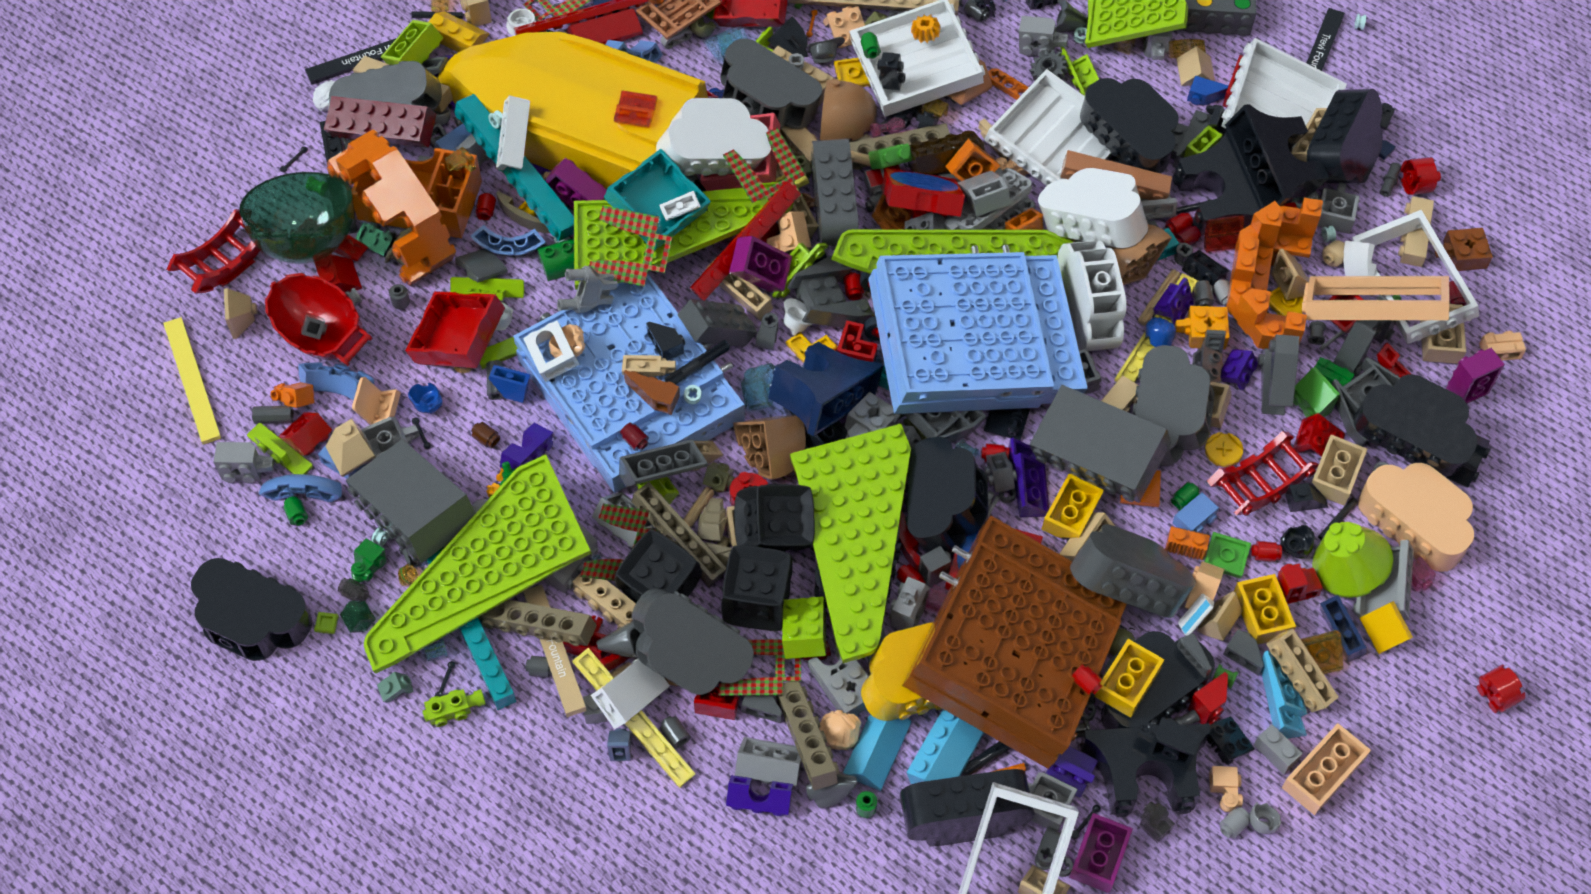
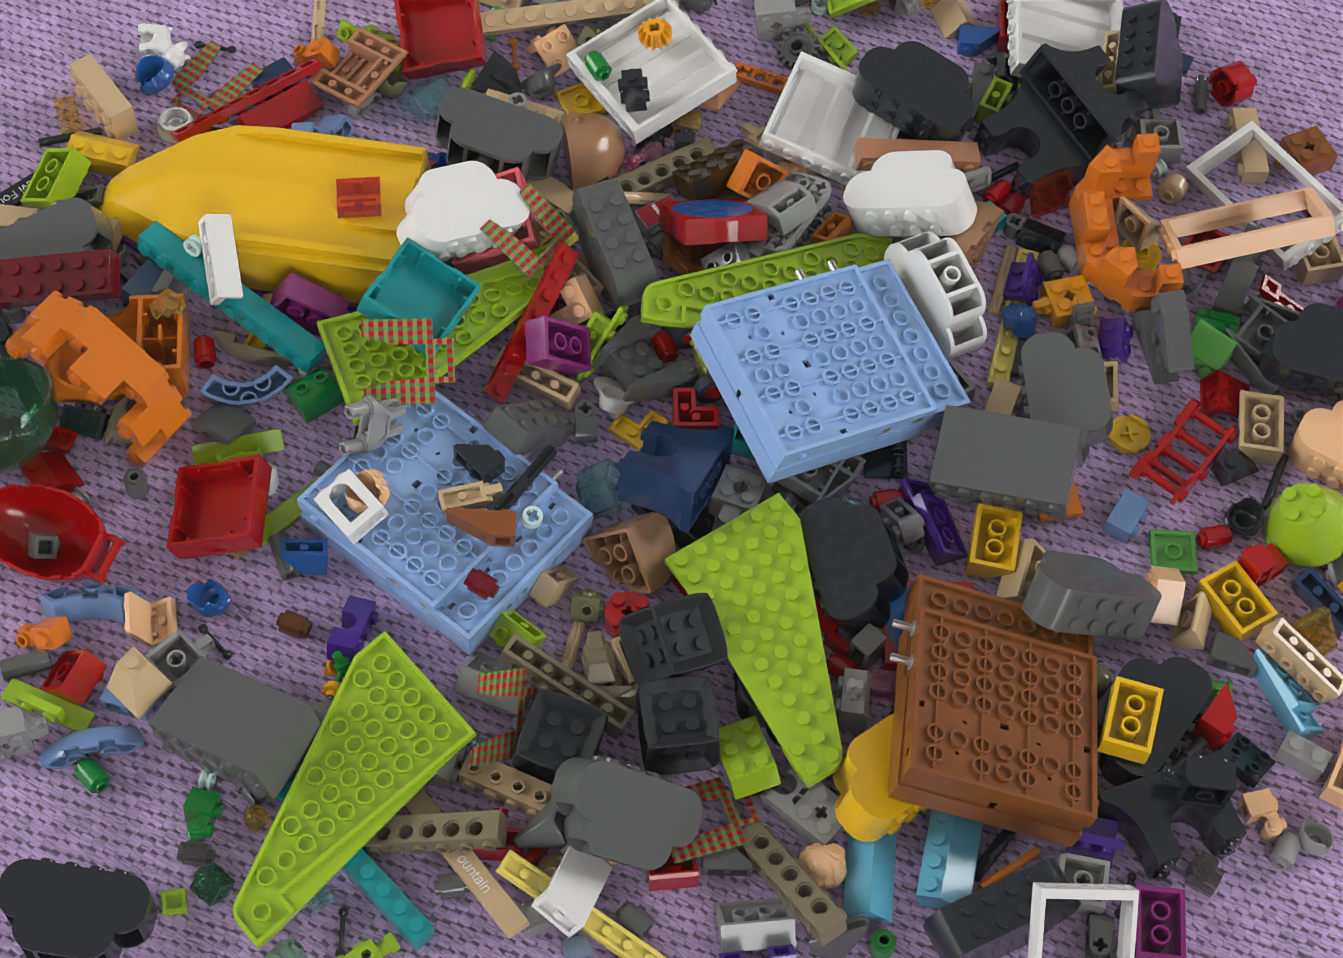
camera: 20 degrees left, 0 degrees up
(660, 462) = (522, 608): dark grey slope -> none
(679, 206) = (448, 300): white slope -> none
(890, 156) = (660, 188): bright green brick -> none
(1087, 679) = (1090, 735): red brick -> none
(1185, 495) = (1107, 497): green brick -> none
(1187, 543) = (1128, 549): orange brick -> none
(1194, 653) = (1190, 674): dark grey slope -> none
(1196, 614) = (1167, 628): white slope -> none
(1358, 259) = (1203, 190): white slope -> none

